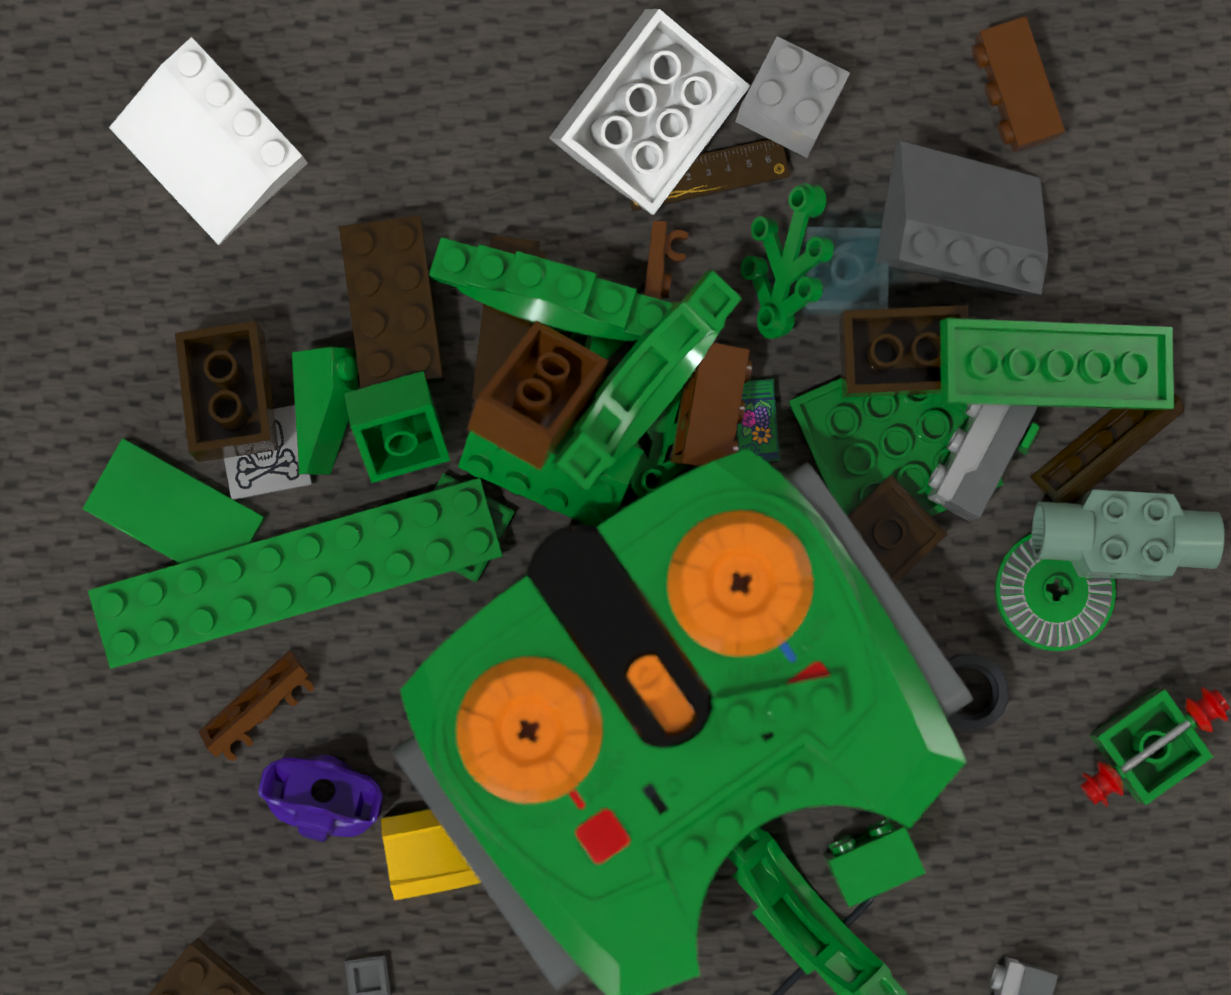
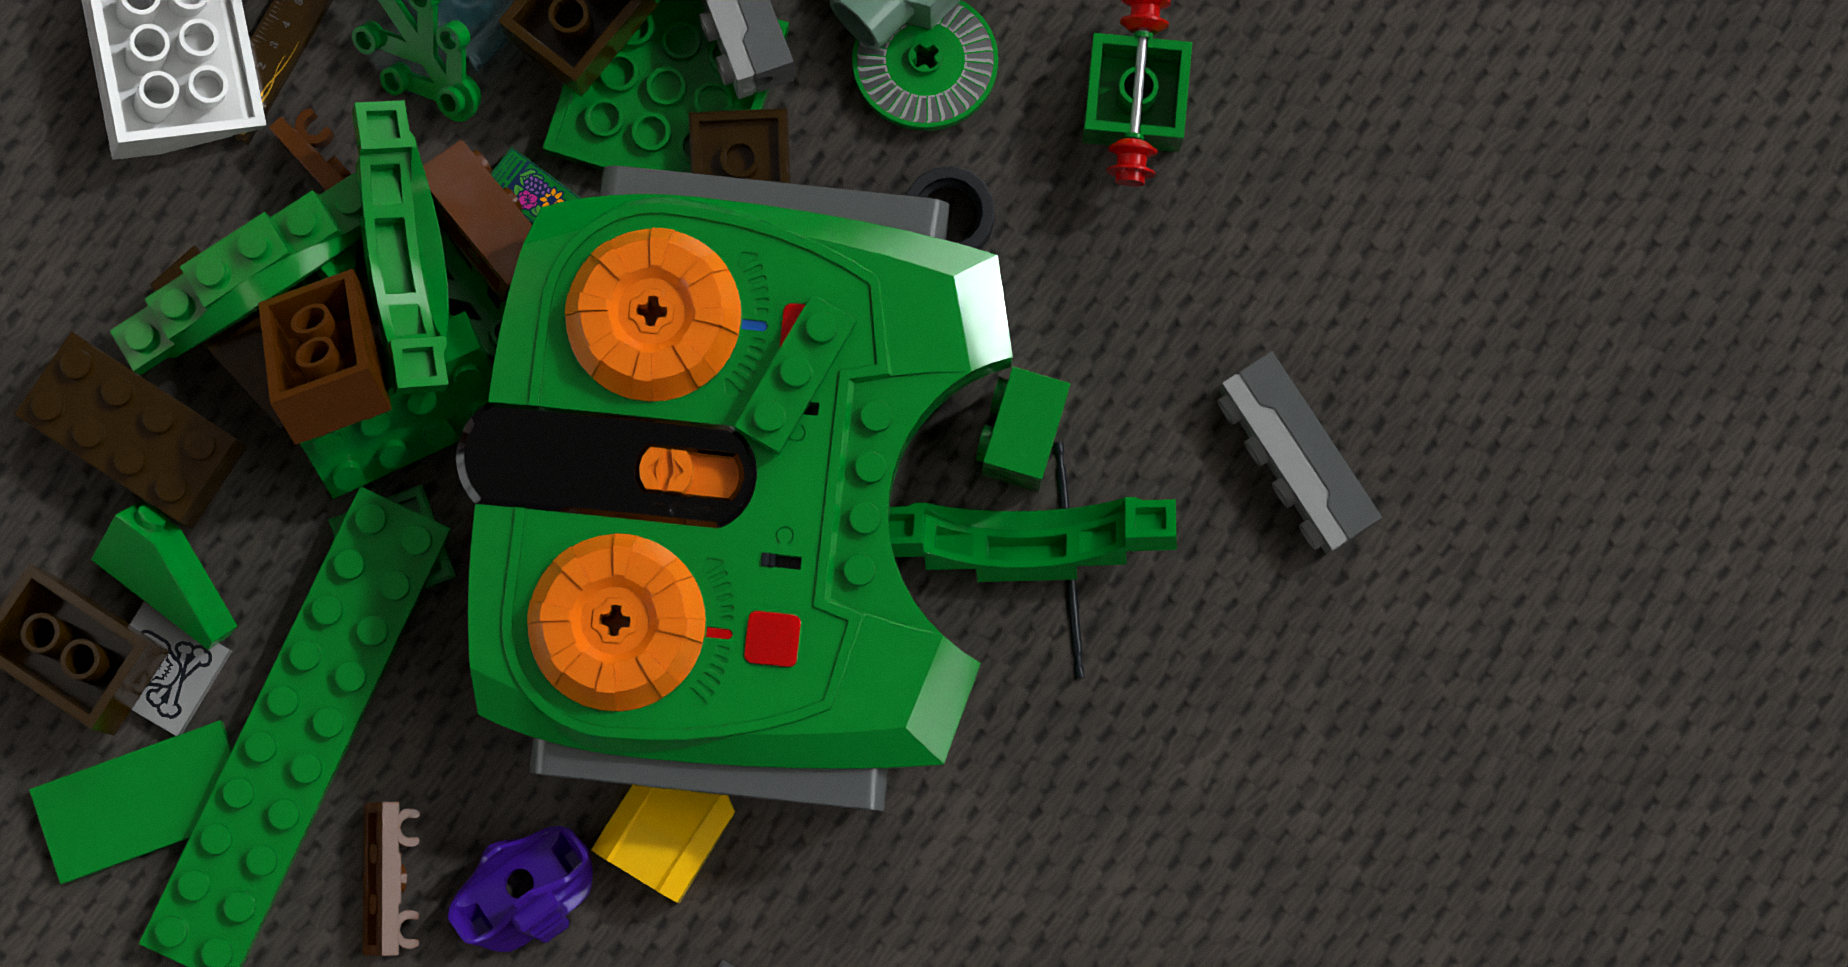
camera: 50 degrees left, 5 degrees down
(396, 427) = (244, 519): green brick -> none

